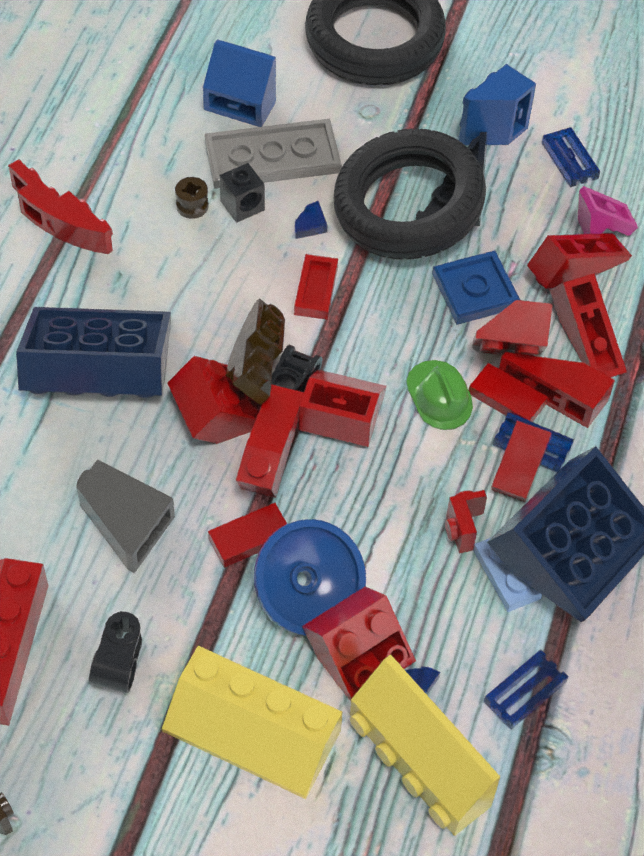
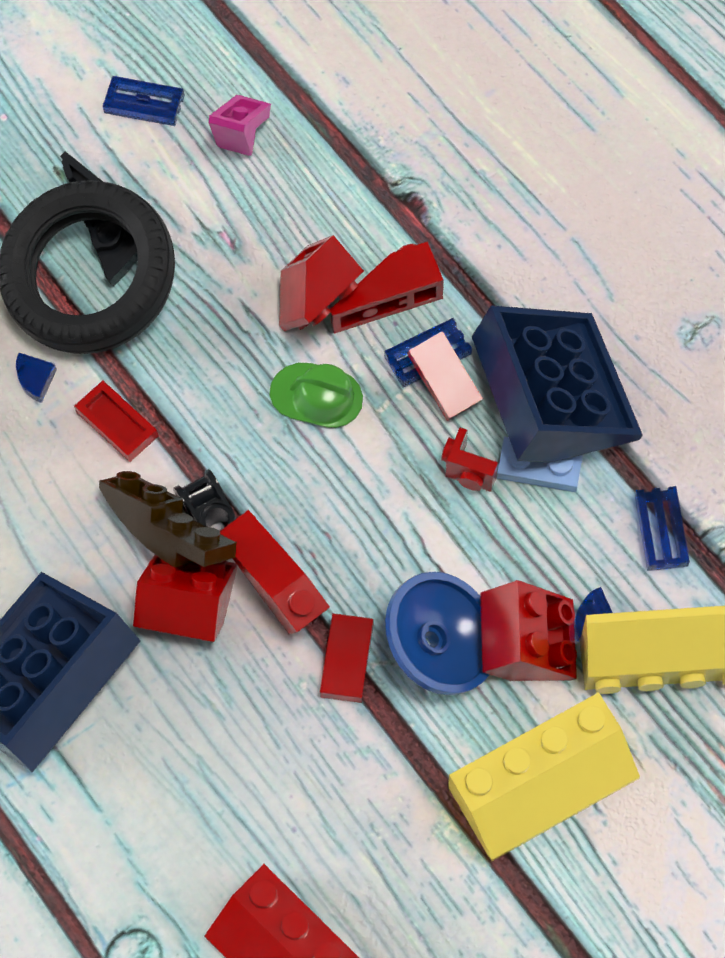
camera: 50 degrees left, 10 degrees up
(117, 657) = (401, 859): black piece -> none
(124, 511) = (245, 756): dark grey slope -> none
(340, 407) = (276, 484): red slope -> none
(475, 287) = (225, 284): blue tile -> none
(498, 107) = (49, 121): blue slope -> none
(507, 393) = (362, 338): red tile -> none
(575, 256) = (267, 178): red slope -> none
(588, 324) = (325, 211): red slope -> none

